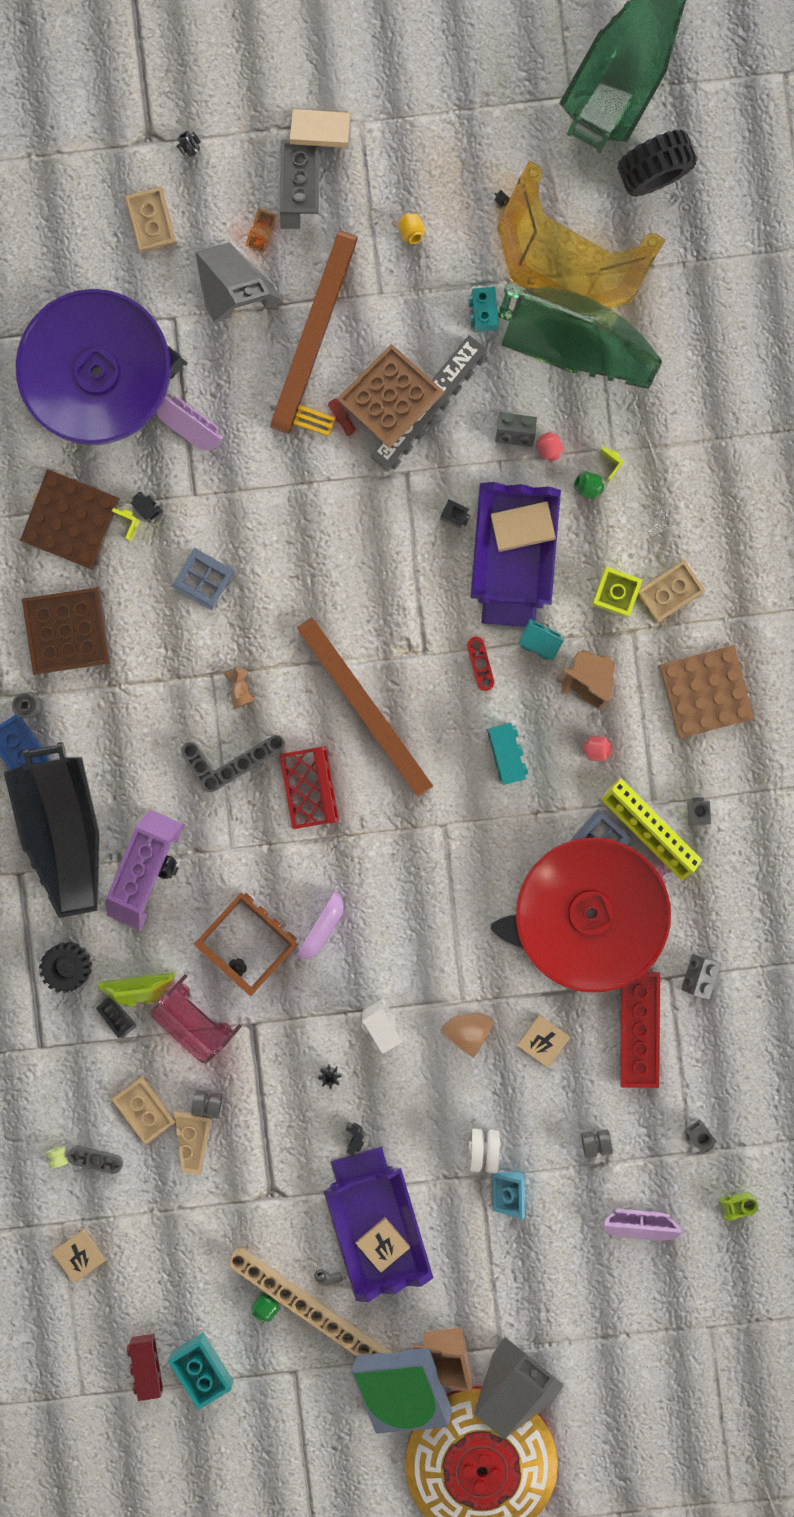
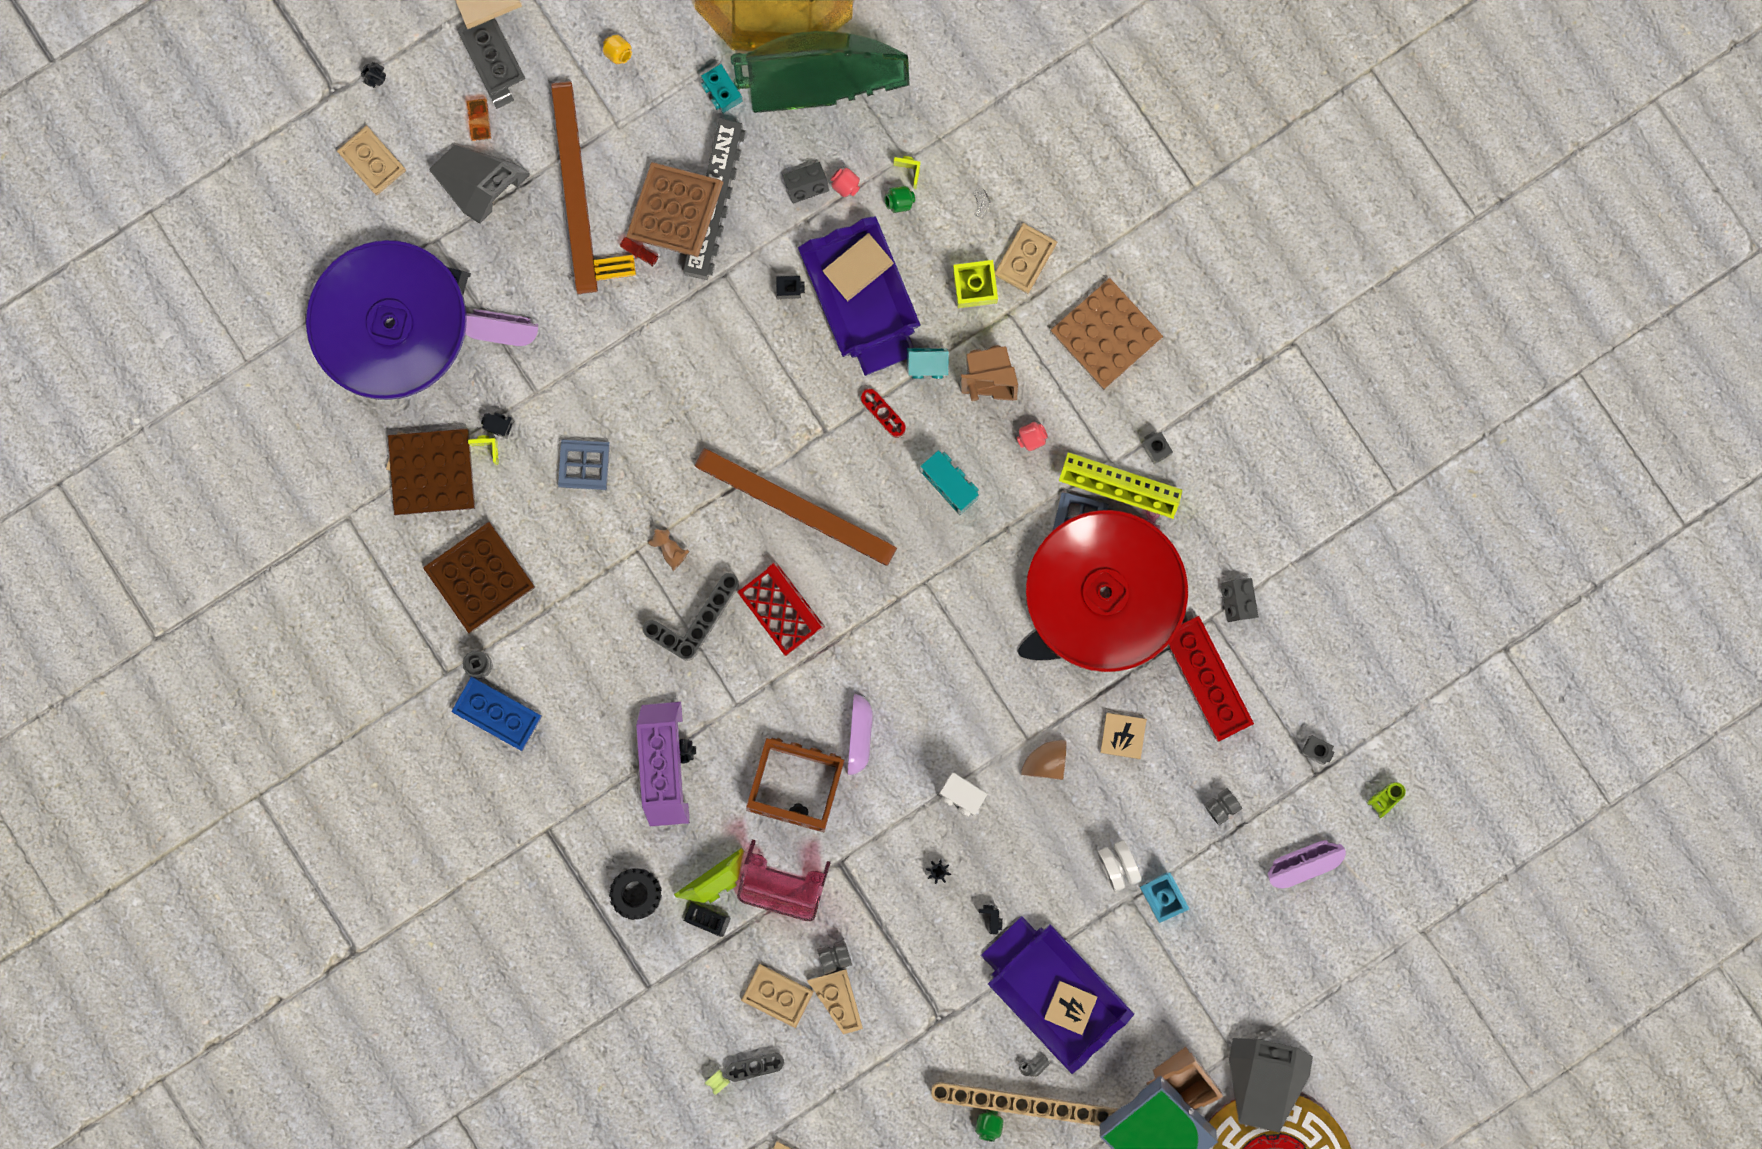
camera: 20 degrees left, 5 degrees down
(58, 827) = (565, 760): black windscreen -> none

